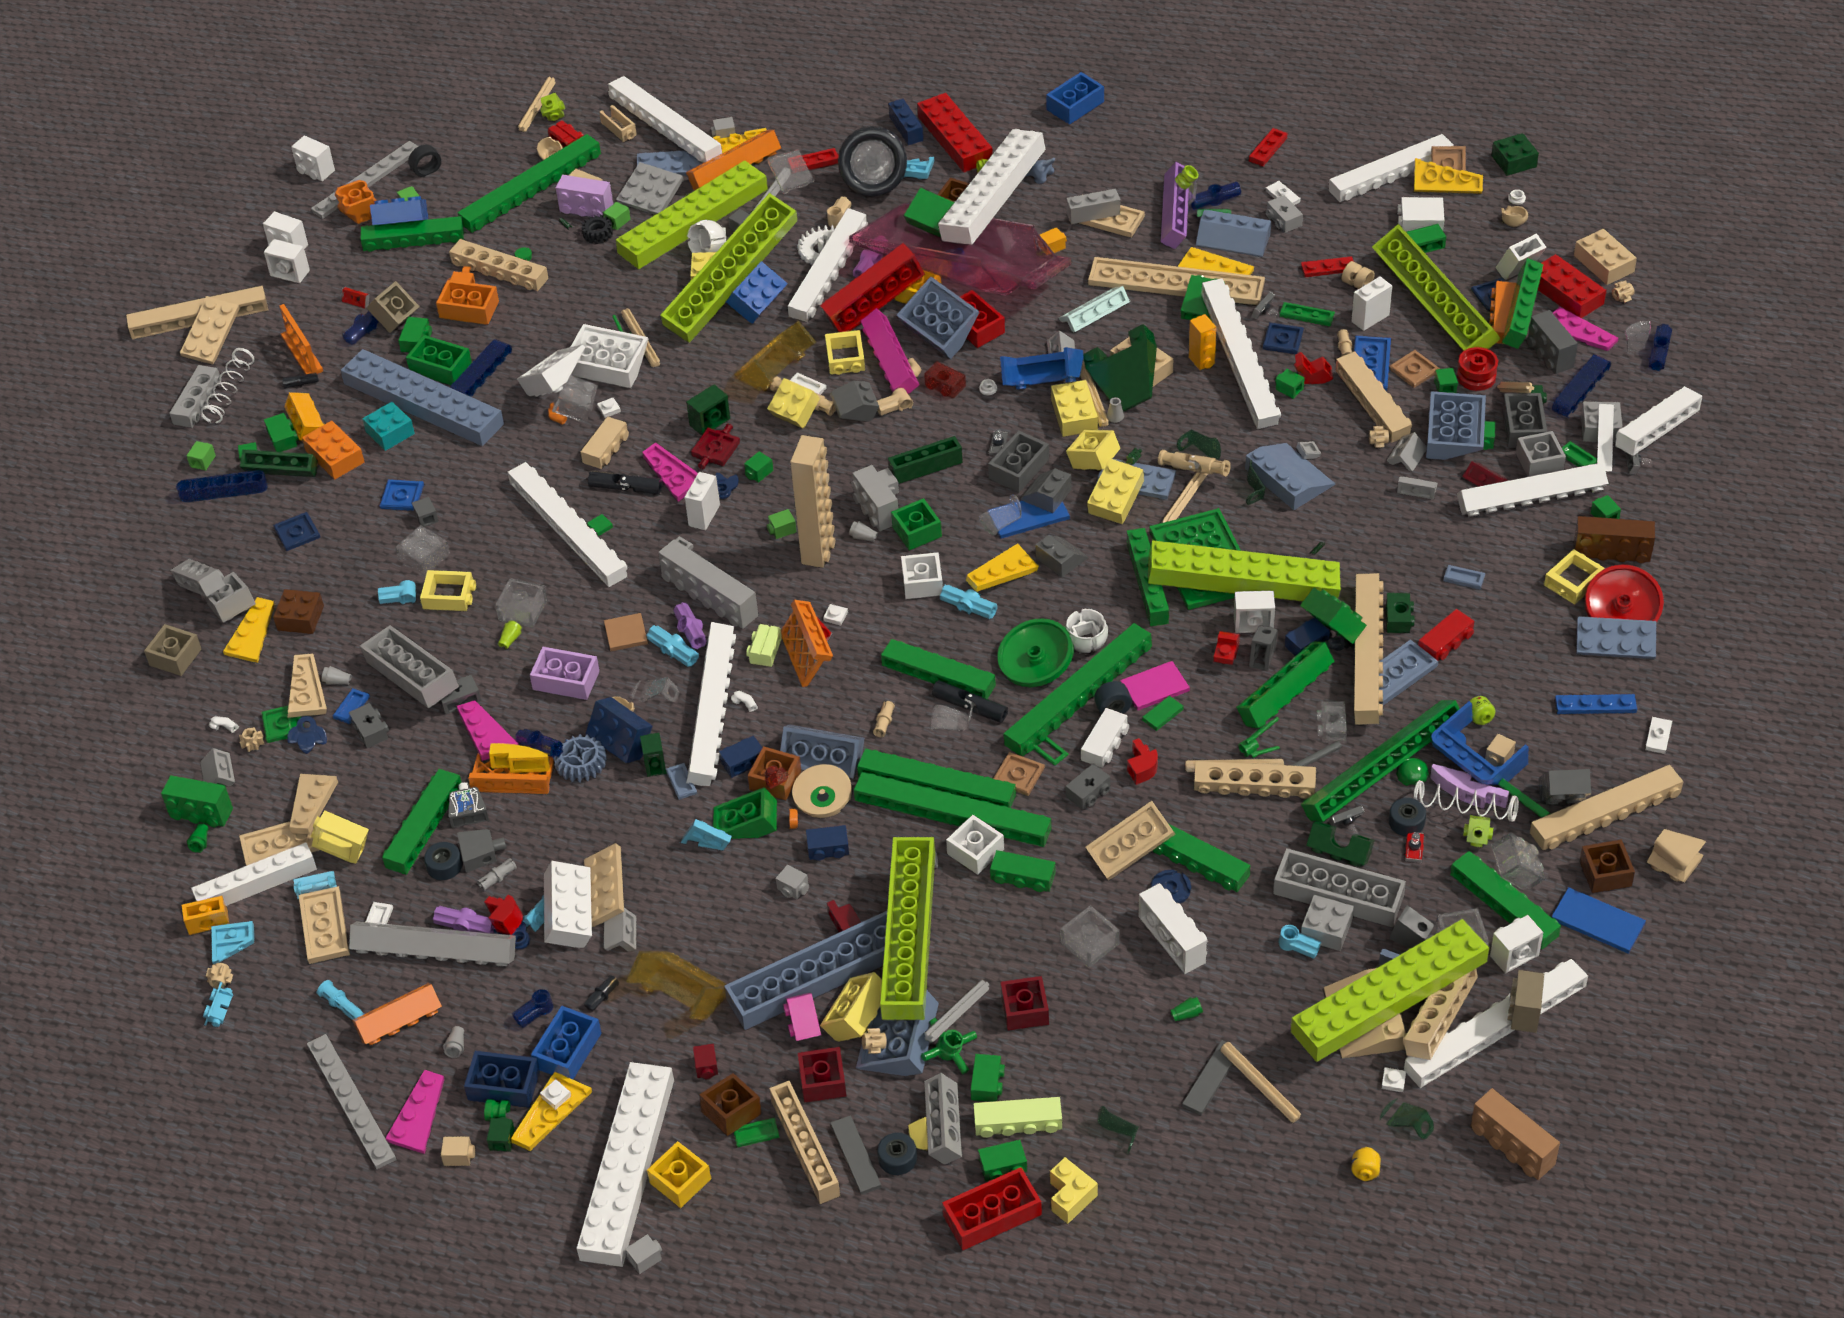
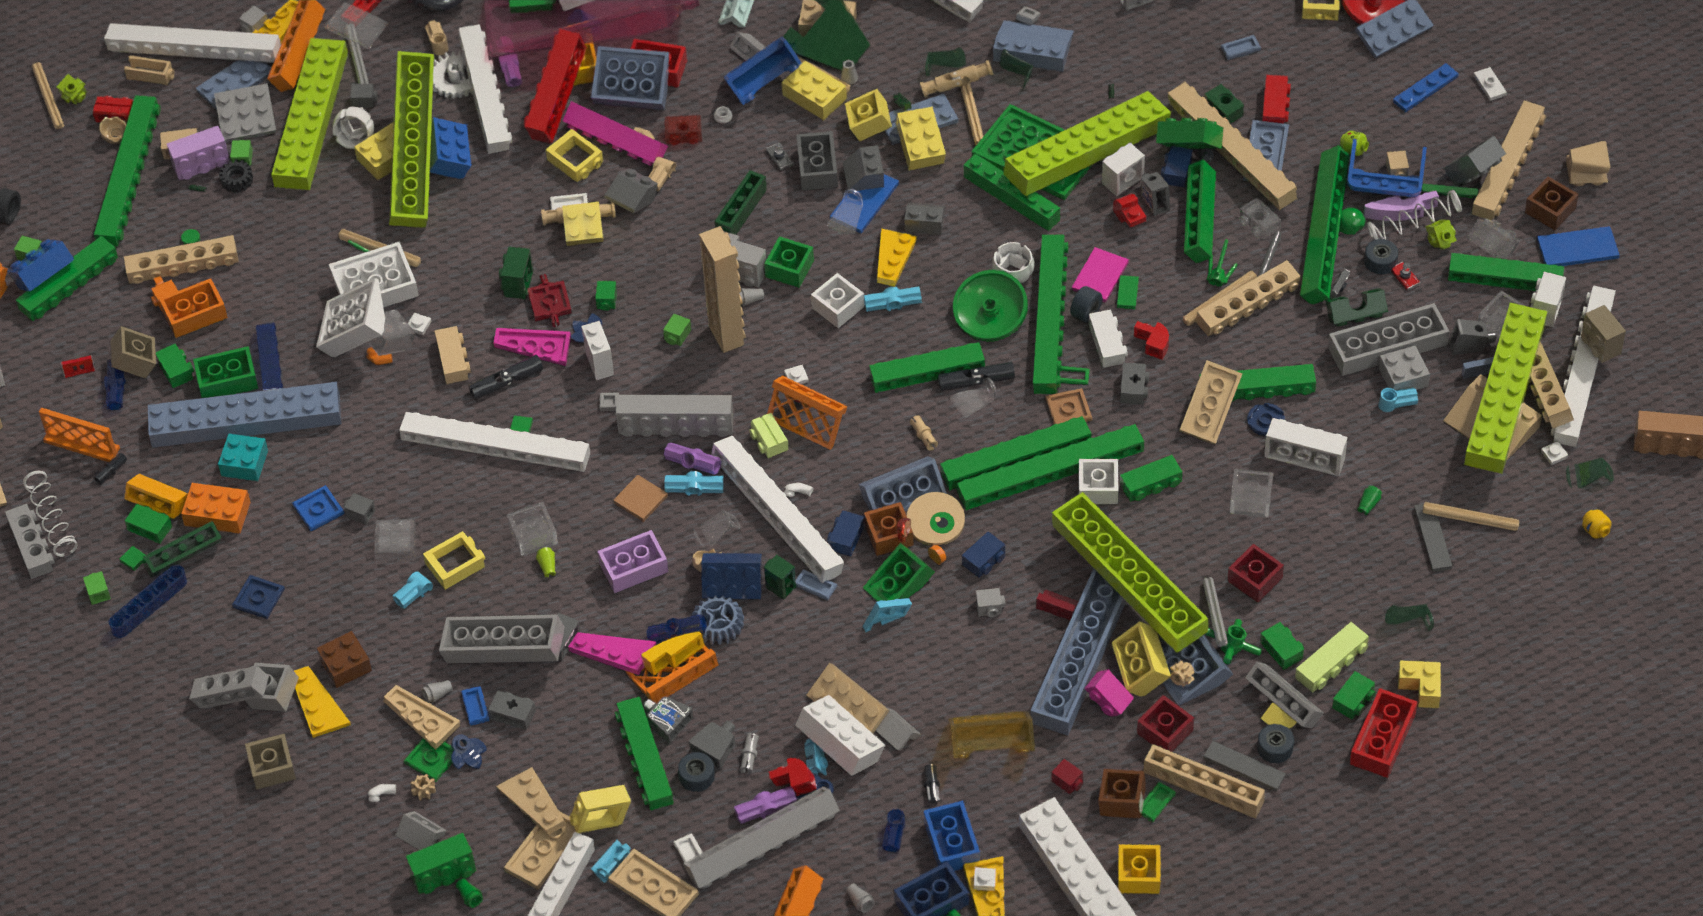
camera: 40 degrees left, 5 degrees up
(775, 357) = (515, 195): clear yellow windscreen -> none

